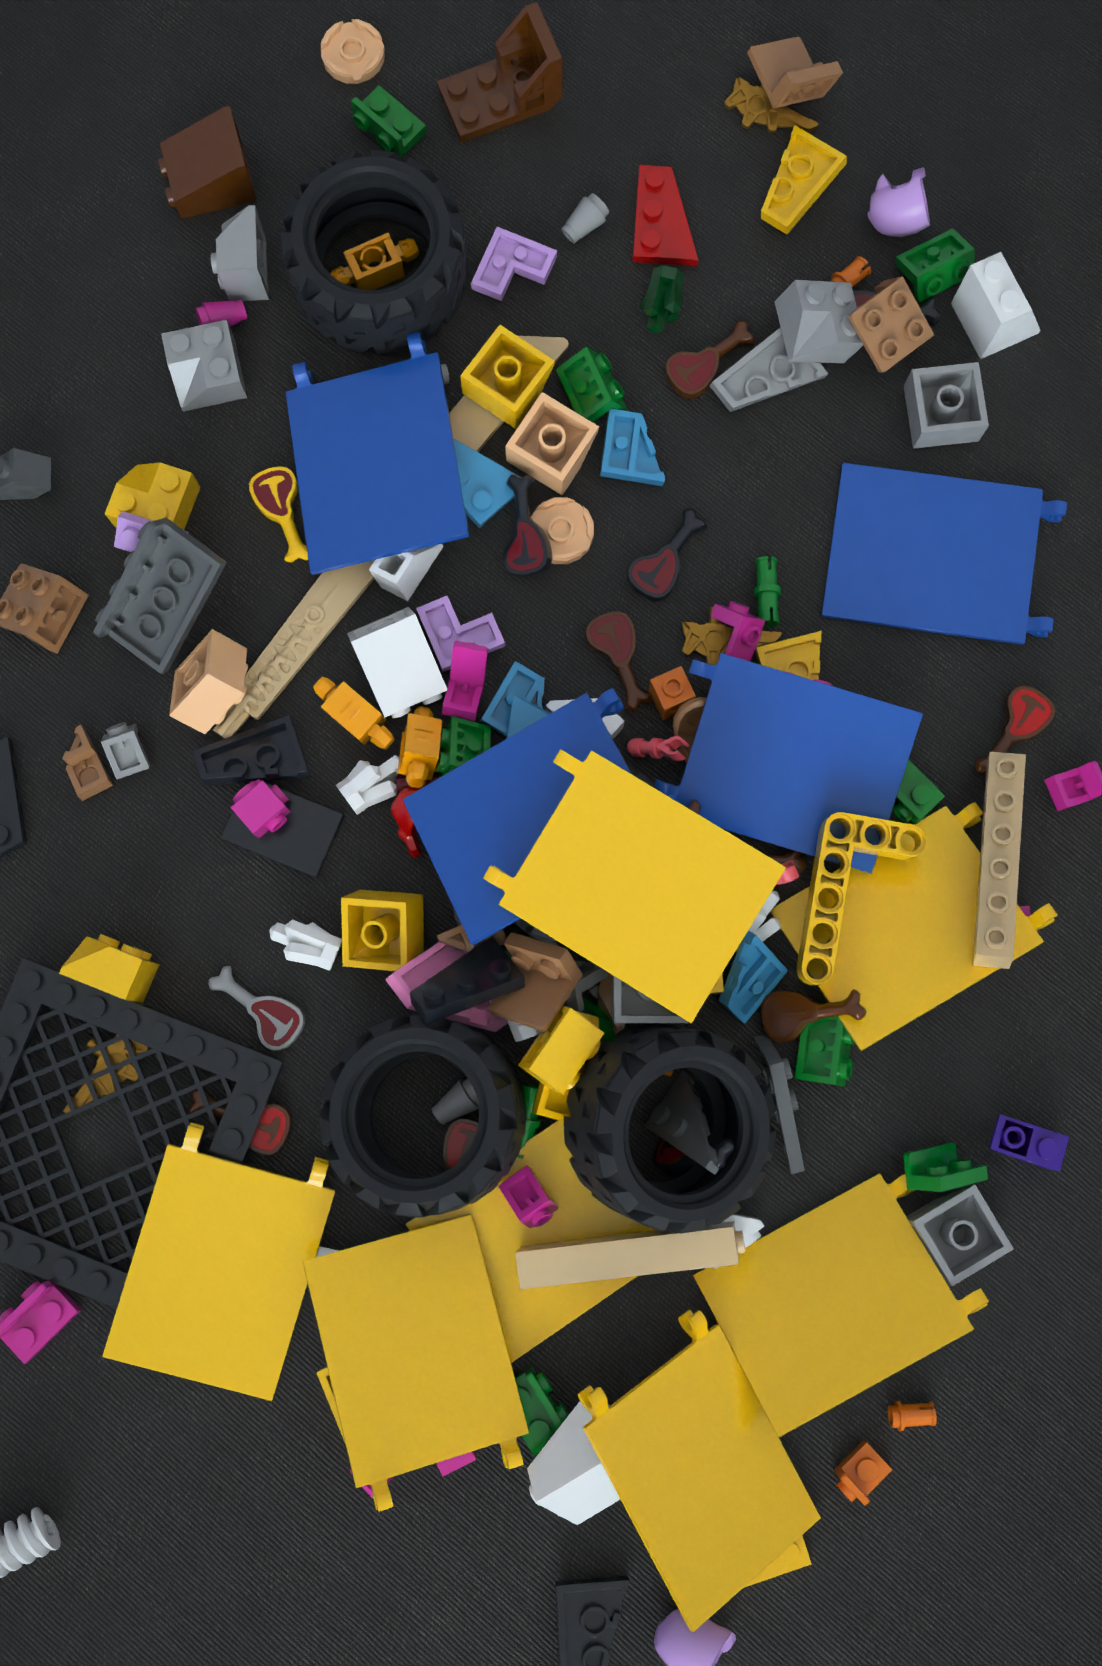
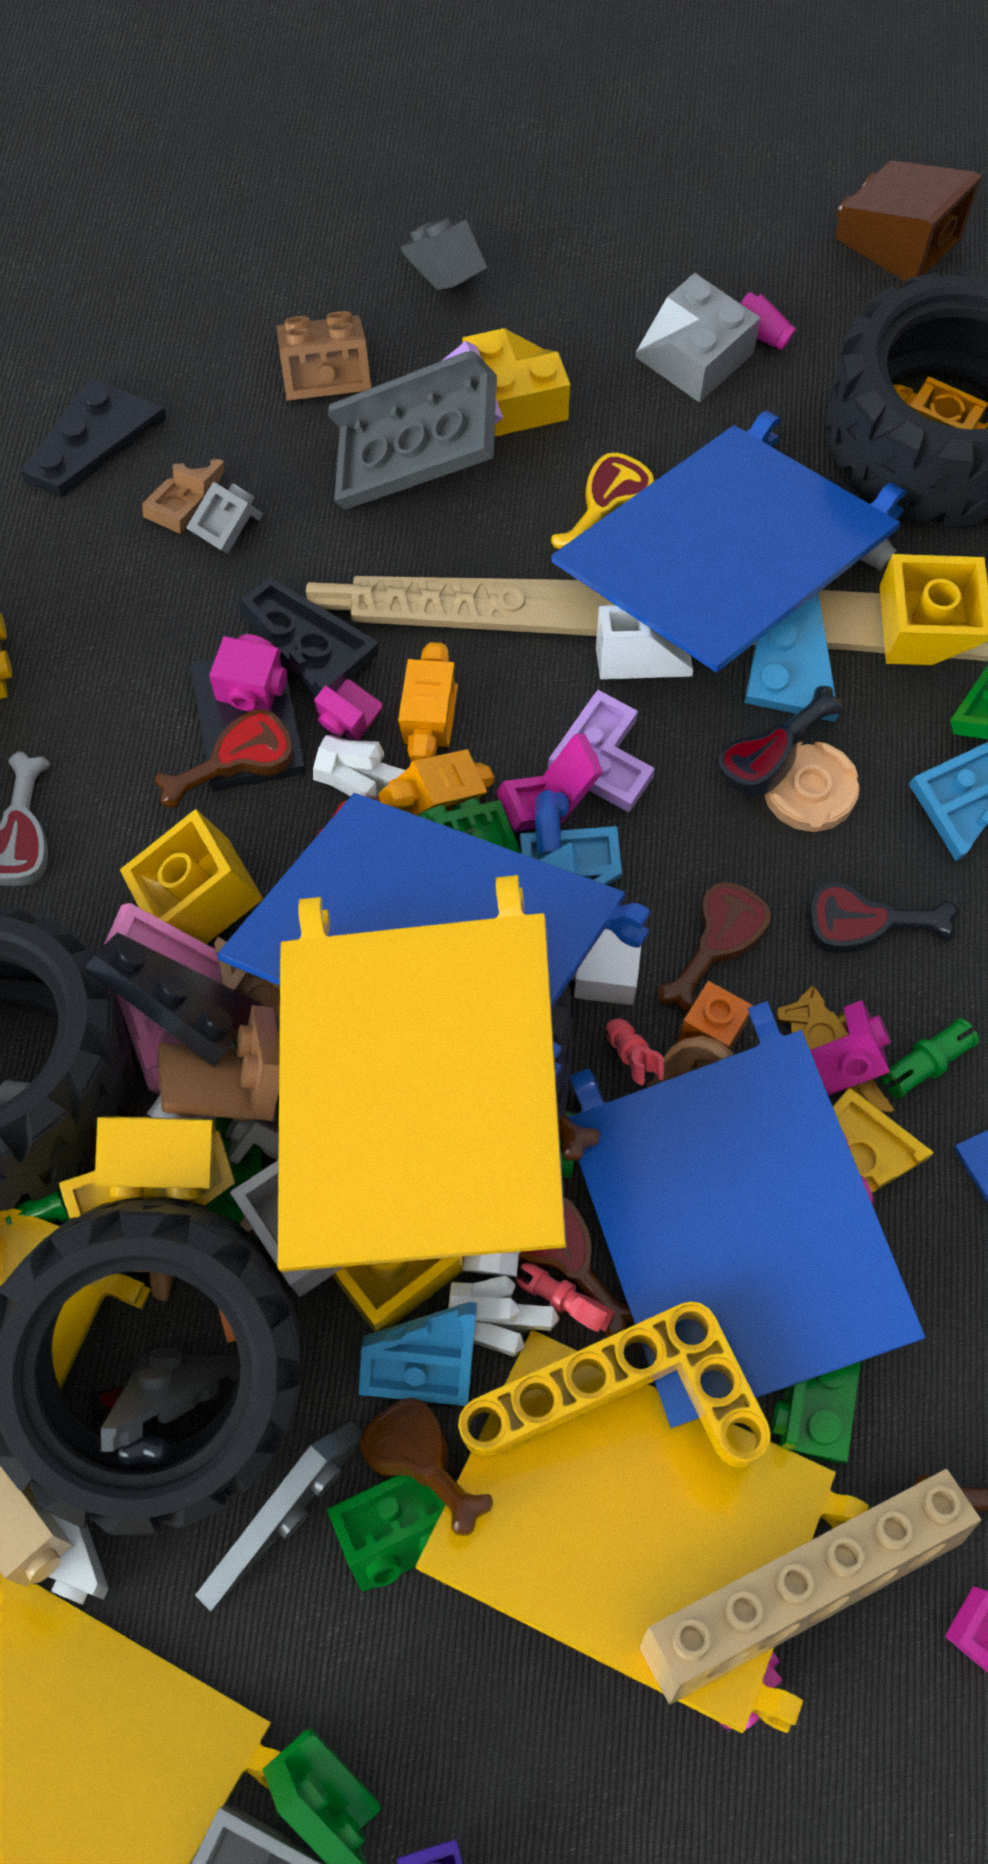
camera: 55 degrees right, 15 degrees down
(209, 682) = (355, 541): light nougat slope -> none
(242, 257) = (835, 291): light grey slope -> none
(306, 943) = (122, 818): white rock -> none
(308, 836) = (250, 744): none -> reddish brown piece
(325, 763) = (347, 710): none -> dark pink bracket
(398, 662) = (518, 707): white slope -> none
(478, 692) = (548, 810): none -> blue arm
(551, 443) = (899, 702): light nougat slope -> none

